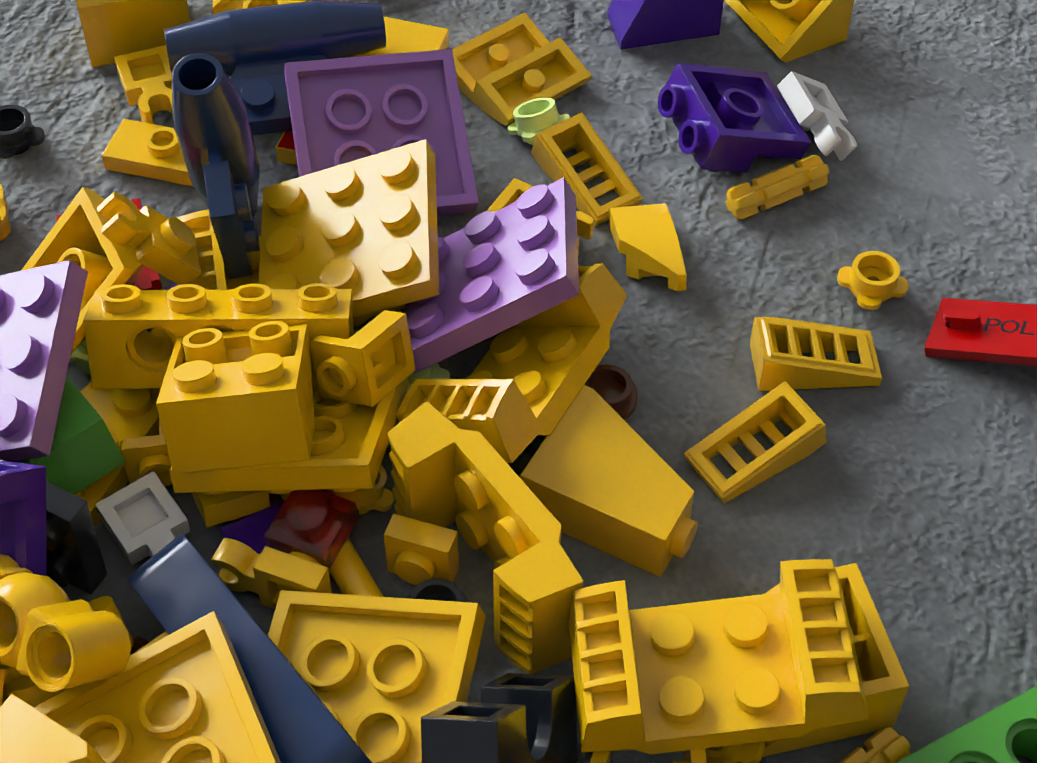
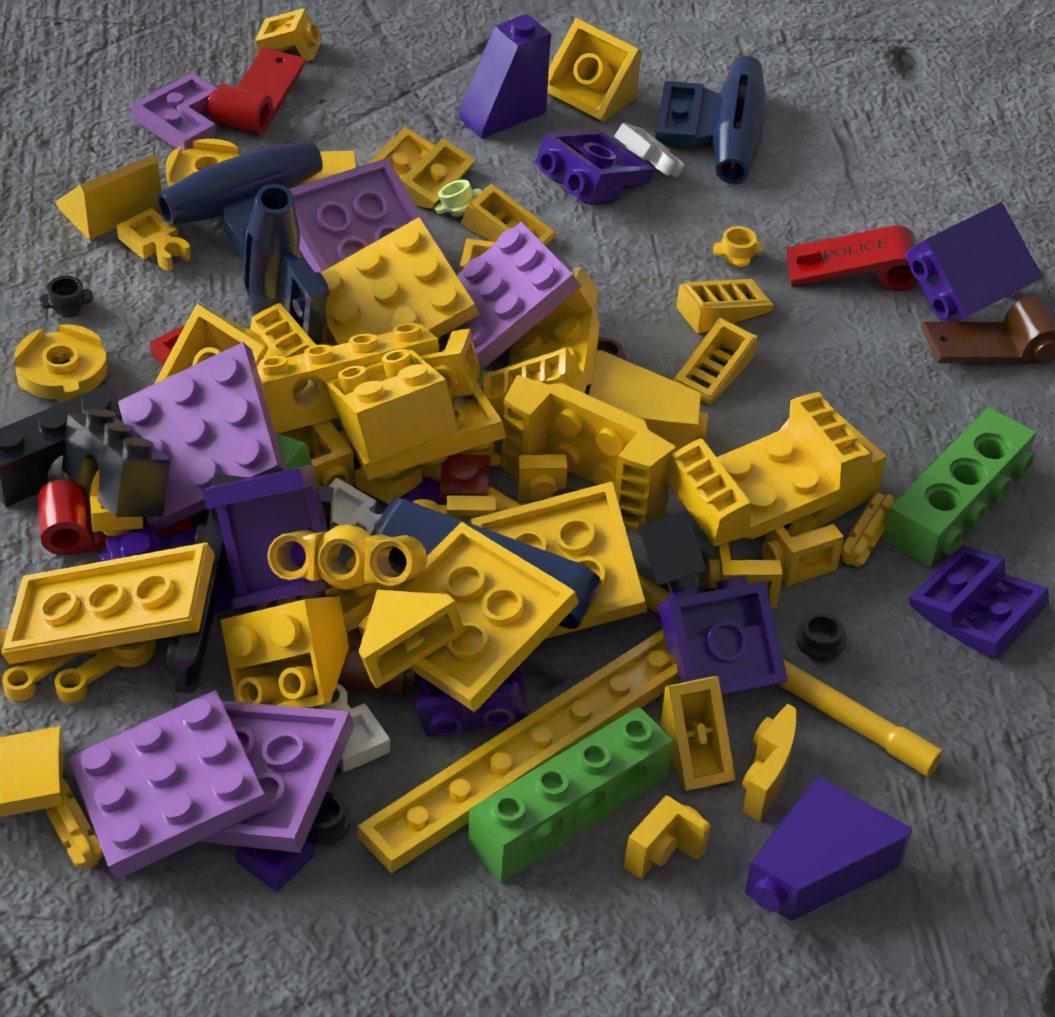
camera: 25 degrees left, 5 degrees down
(146, 152) = (194, 284): yellow plate -> none
(159, 241) = (269, 328): yellow plate -> none
(649, 242) = (578, 251): yellow slope -> none
(777, 187) = (644, 204): yellow axle -> none
(939, 97) = (728, 118): none -> dark blue plate

